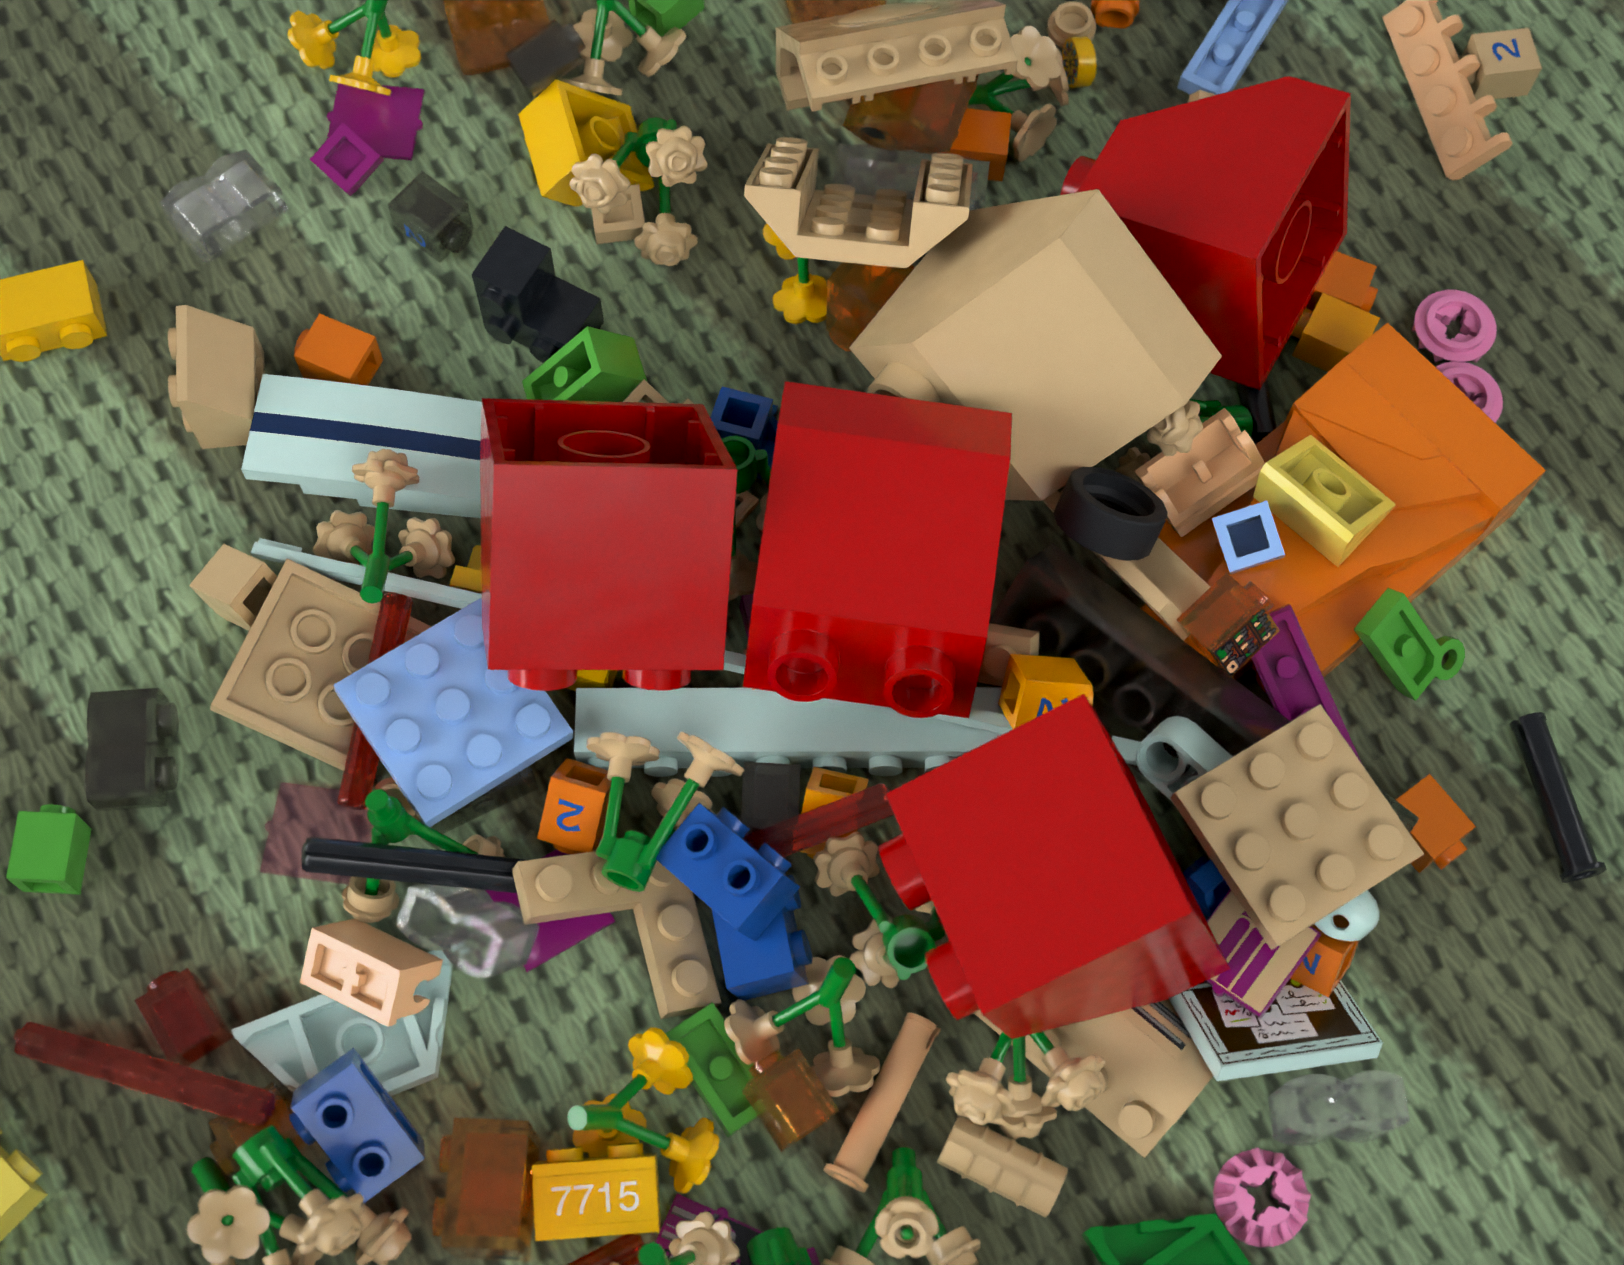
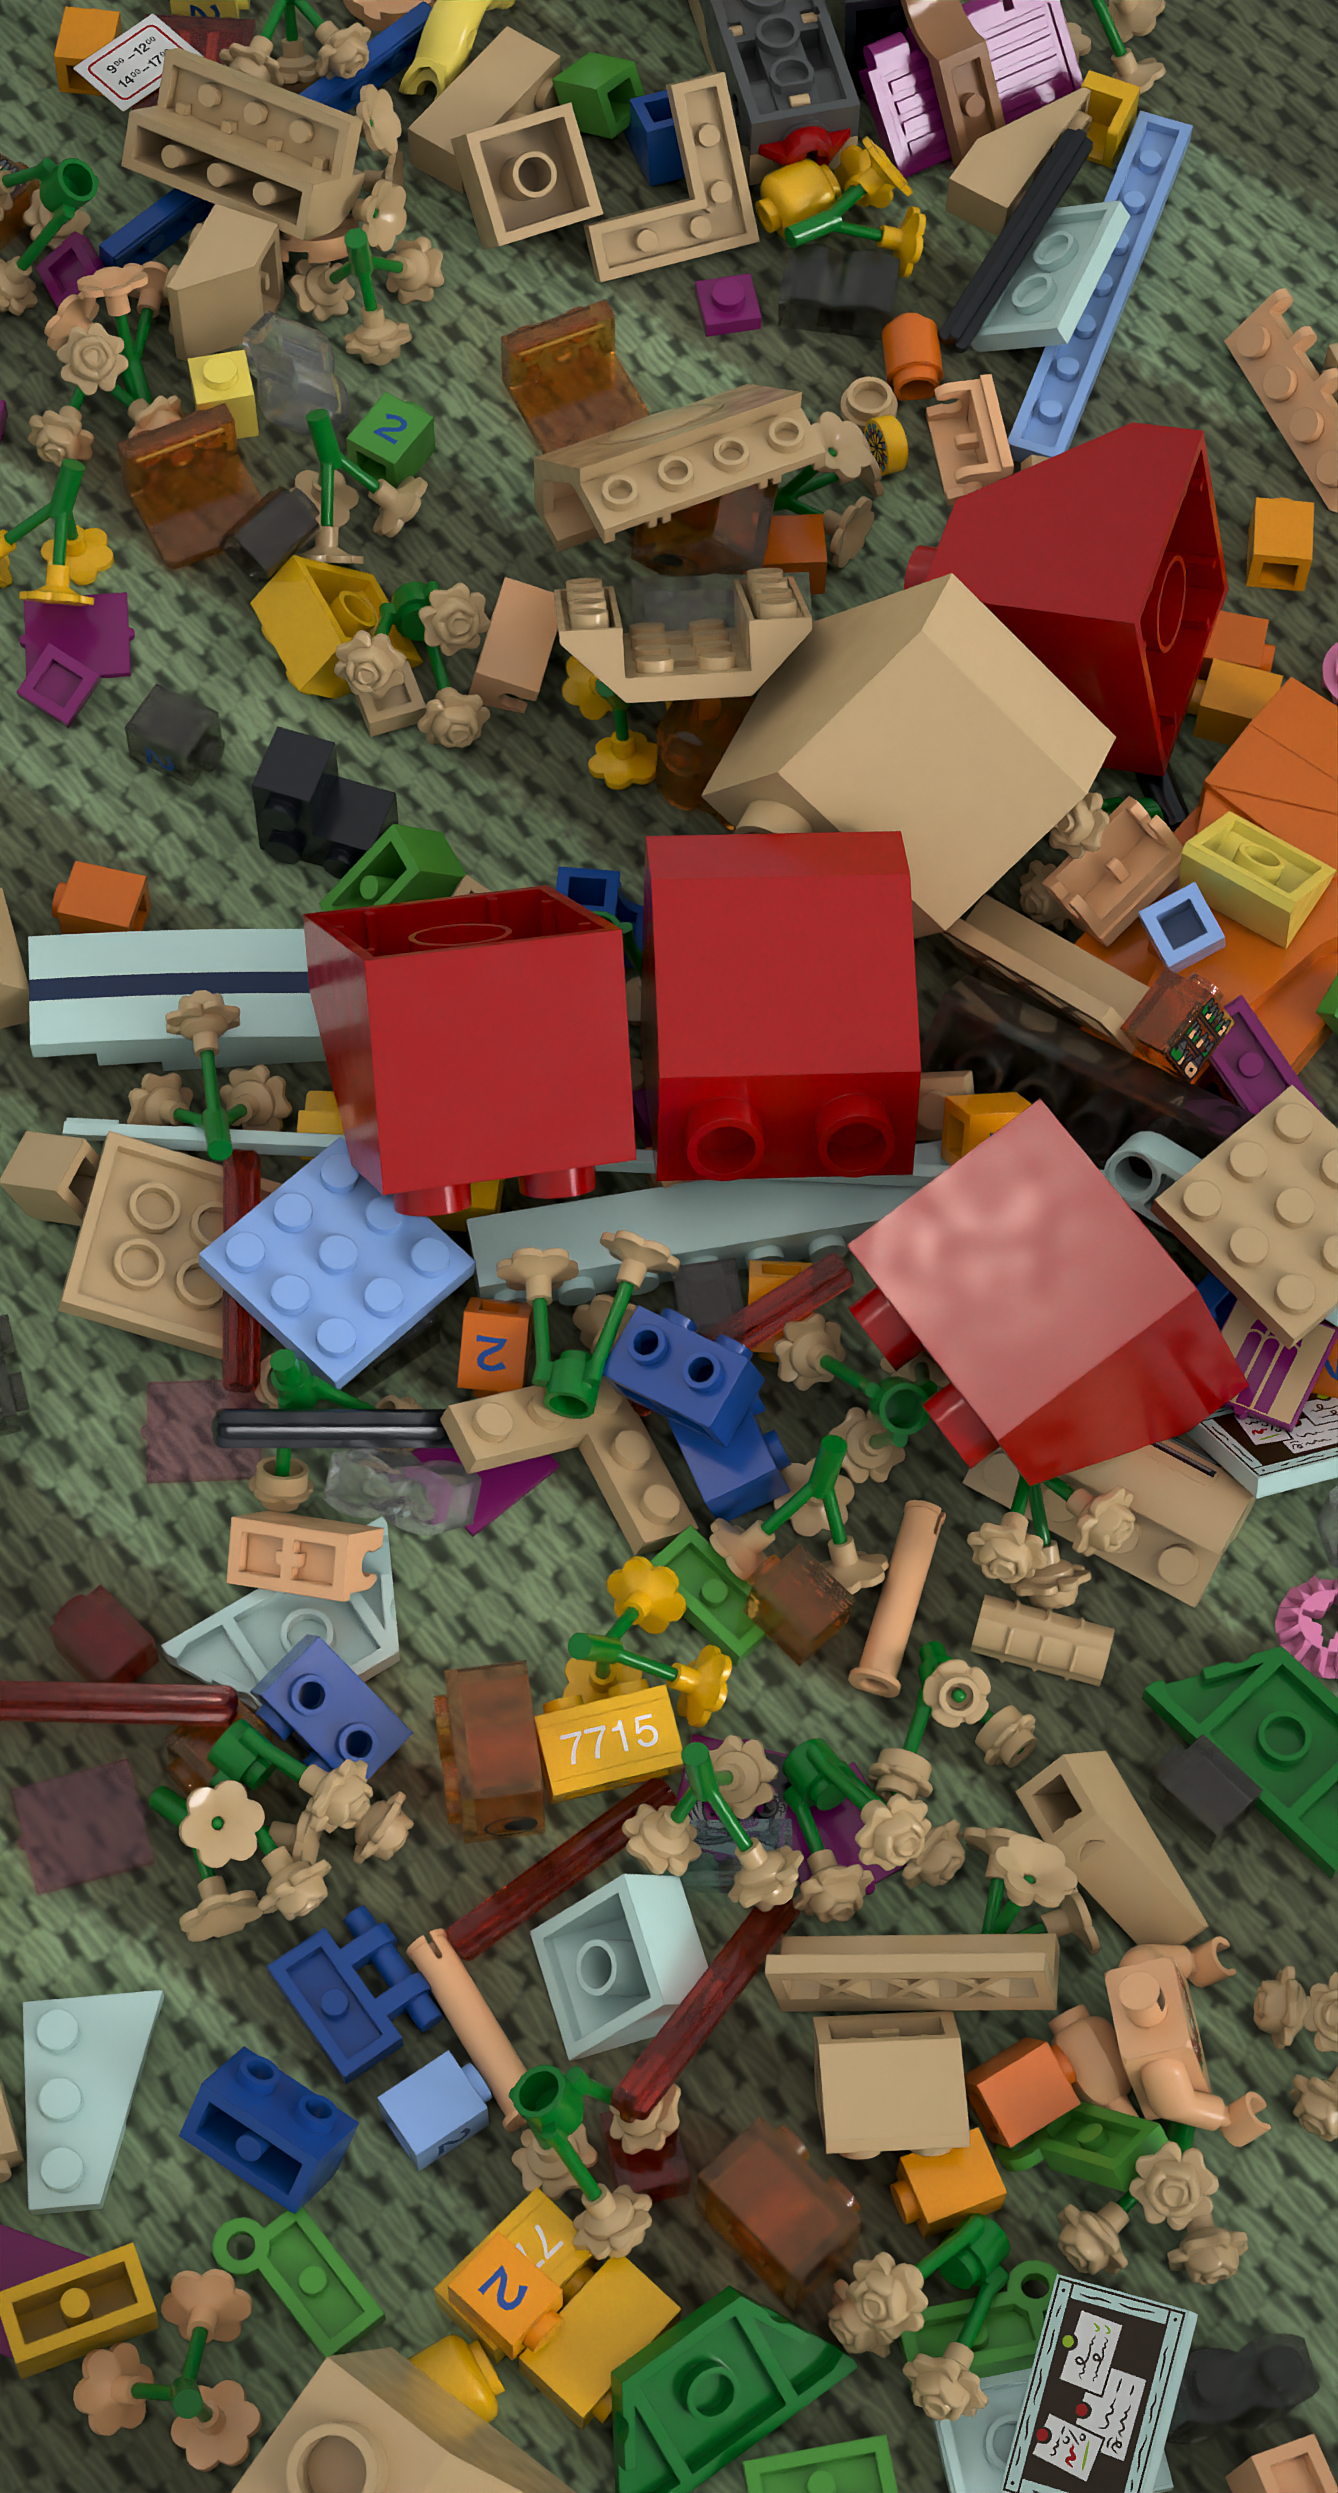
camera: 10 degrees left, 5 degrees down
(131, 1180) = (82, 1826): none -> clear pink piece
(721, 195) = (516, 646): none -> light nougat hinge
(1110, 513) = (1025, 928): black tyre -> none
(1150, 66) = (969, 437): none -> light nougat hinge
(1398, 200) = (1280, 544): none -> light orange brick

